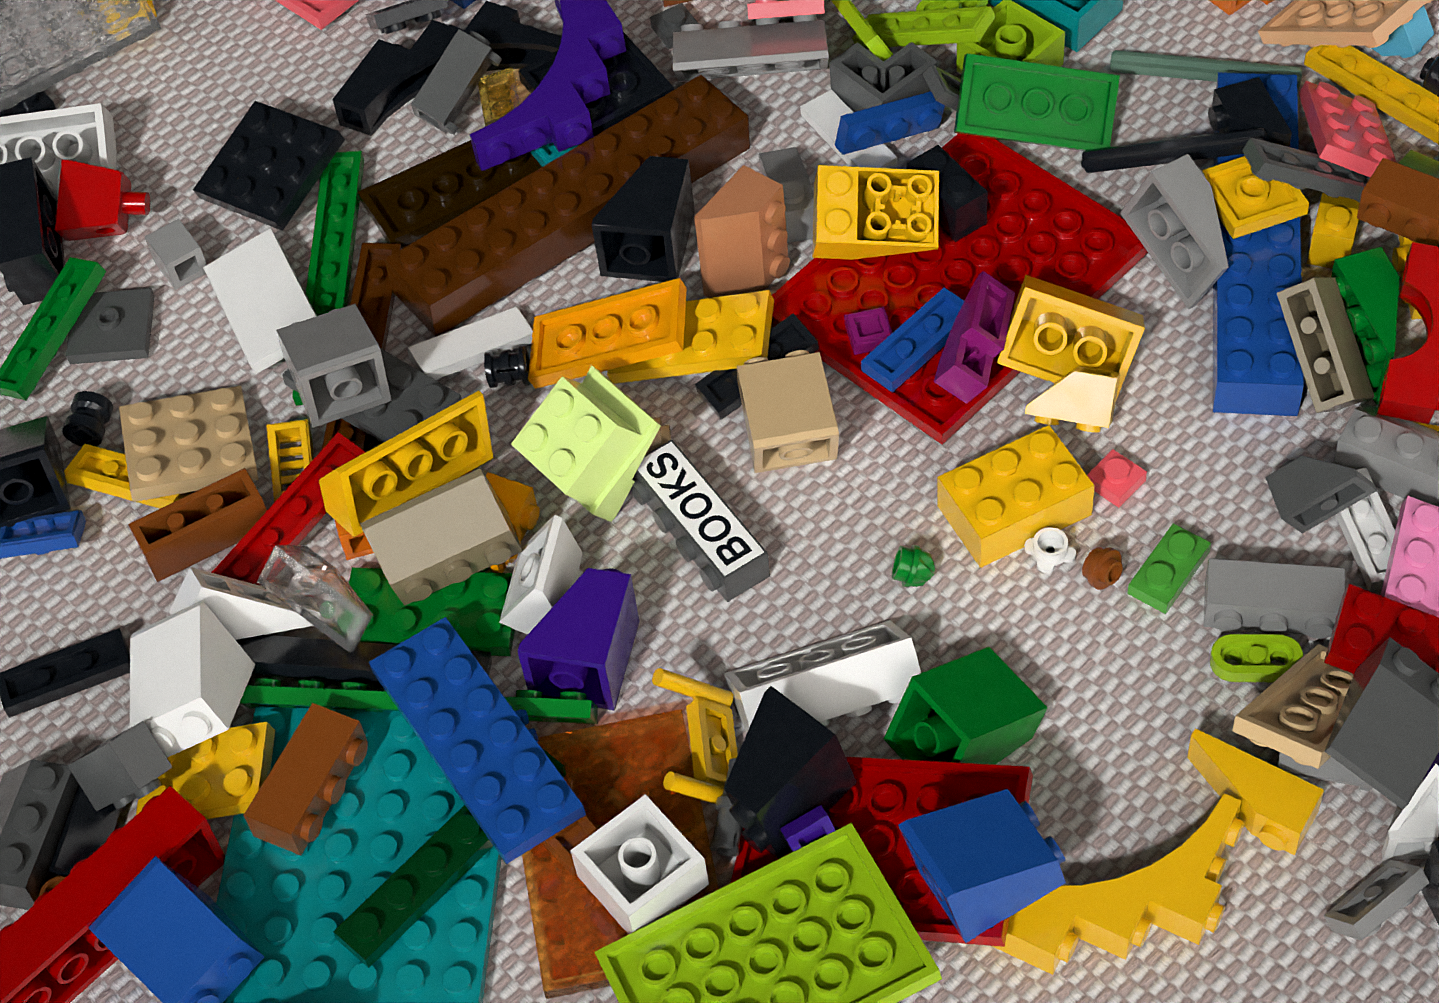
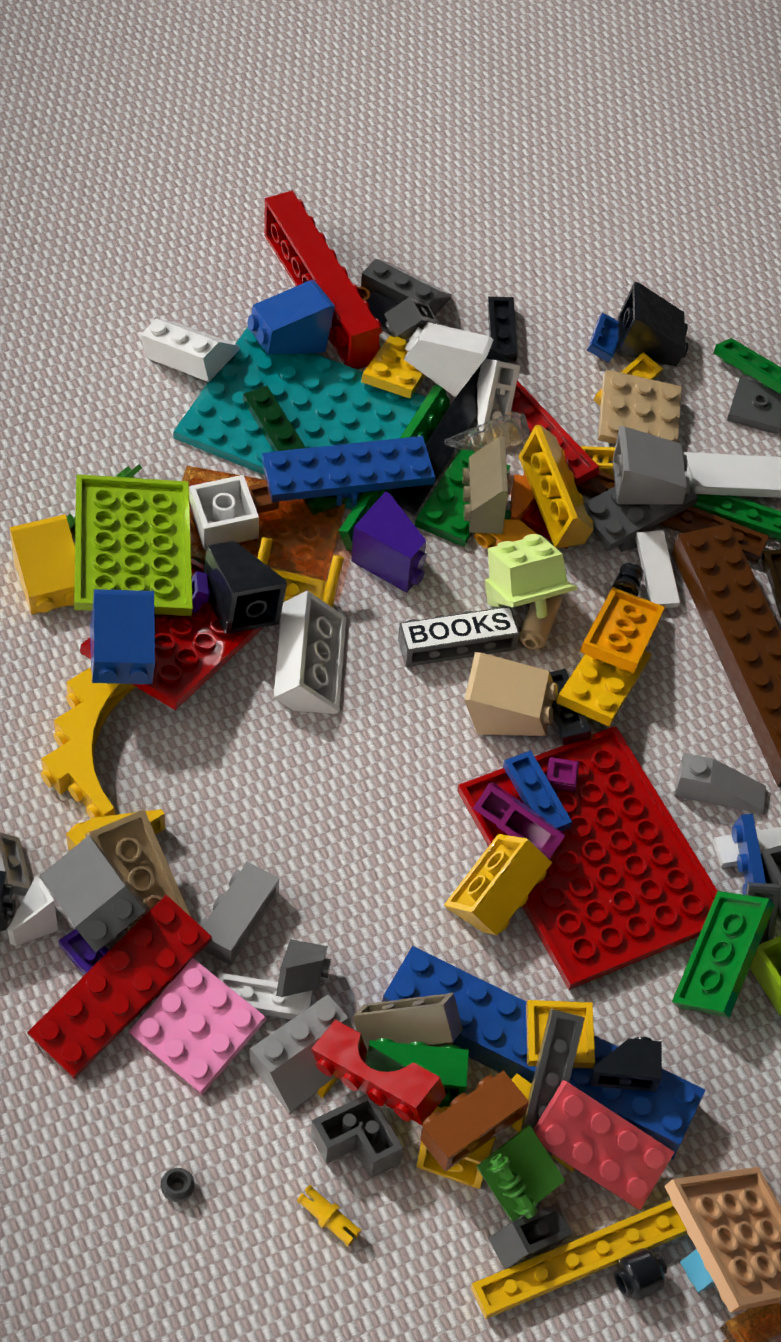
camera: 100 degrees right, 0 degrees up
(88, 418) = (682, 375): black wheel -> none
(198, 524) = (570, 399): dark orange brick -> none
(307, 779) = (365, 397): dark orange brick -> none
(541, 575) = (445, 539): white slope -> none
(647, 223) = (712, 685): black slope -> none
(742, 235) = (668, 720): nougat slope -> none
(874, 212) = (652, 794): yellow slope -> none
(912, 566) = (367, 731): green plate -> none
(960, 195) = (658, 858): black brick -> none
(965, 712) = (242, 710): green slope -> none
(1014, 494) = (389, 804): yellow brick -> none
(1050, 539) = (344, 805): white plate -> none
(1079, 397) = (446, 872): slope -> none
(1102, 567) = (312, 831): dark orange plate -> none
(1116, 478) = (381, 875): coral plate -> none
(1169, 150) = (633, 1018): black axle -> none
(1169, 568) = (296, 873): bright green plate -> none
(1180, 227) = (560, 979): light grey slope -> none
(1190, 67) = (732, 1110): sand green axle -> none
(1254, 657) = (201, 886): lime plate -> none

